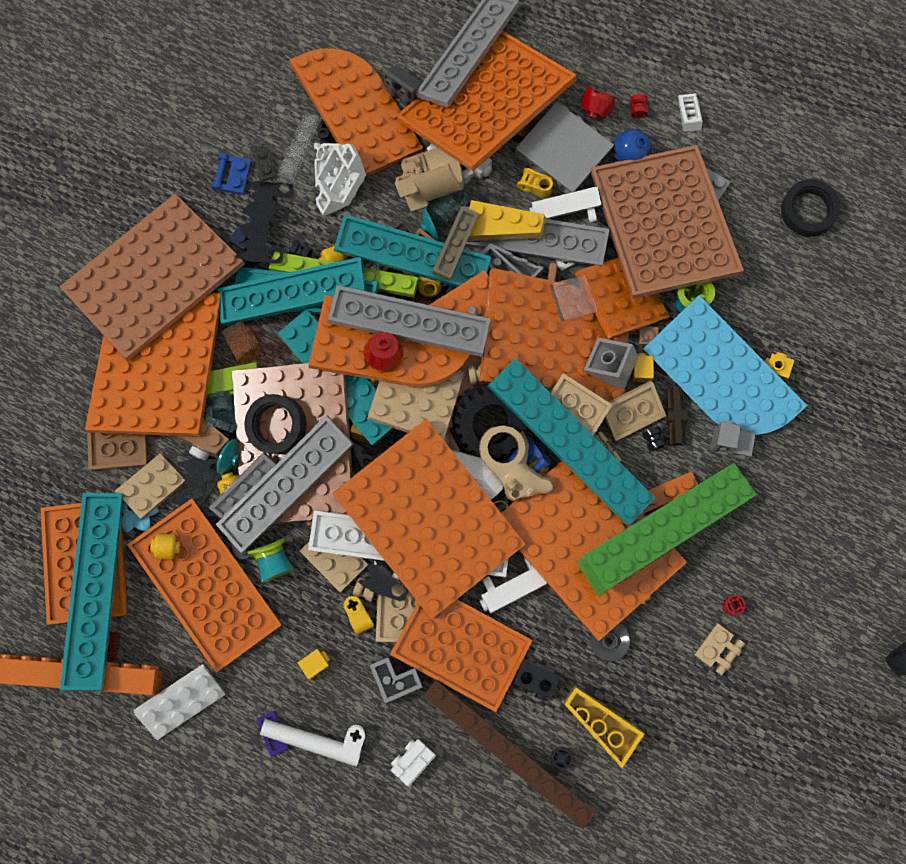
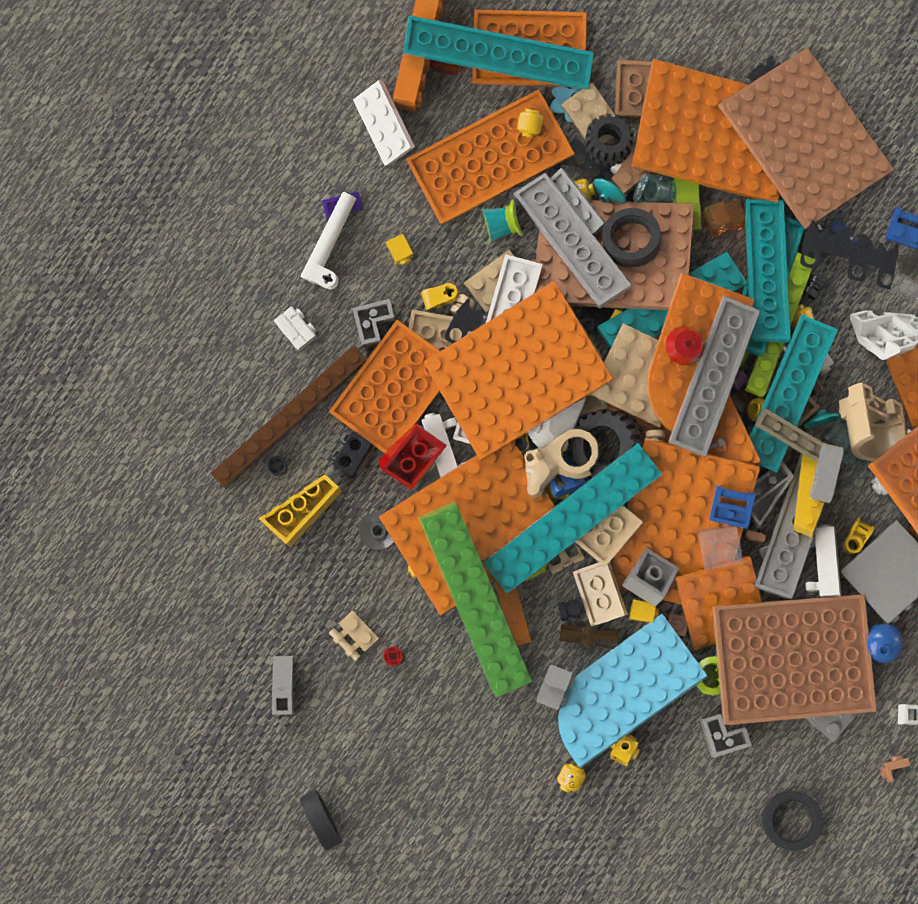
camera: 100 degrees right, 5 degrees up
(87, 327) = (761, 70): none -> black plate
(161, 457) = (609, 126): none -> black tyre
(487, 206) = (826, 473): none -> light grey beam
(531, 616) = (411, 456): none -> red slope
(540, 291) = (731, 513): none -> blue plate
(740, 126) = (895, 763): none -> nougat bracket
(751, 281) = (719, 740): none -> light grey brick
(786, 714) = (282, 686): none -> light grey slope
(815, 413) = (571, 777): none -> yellow head

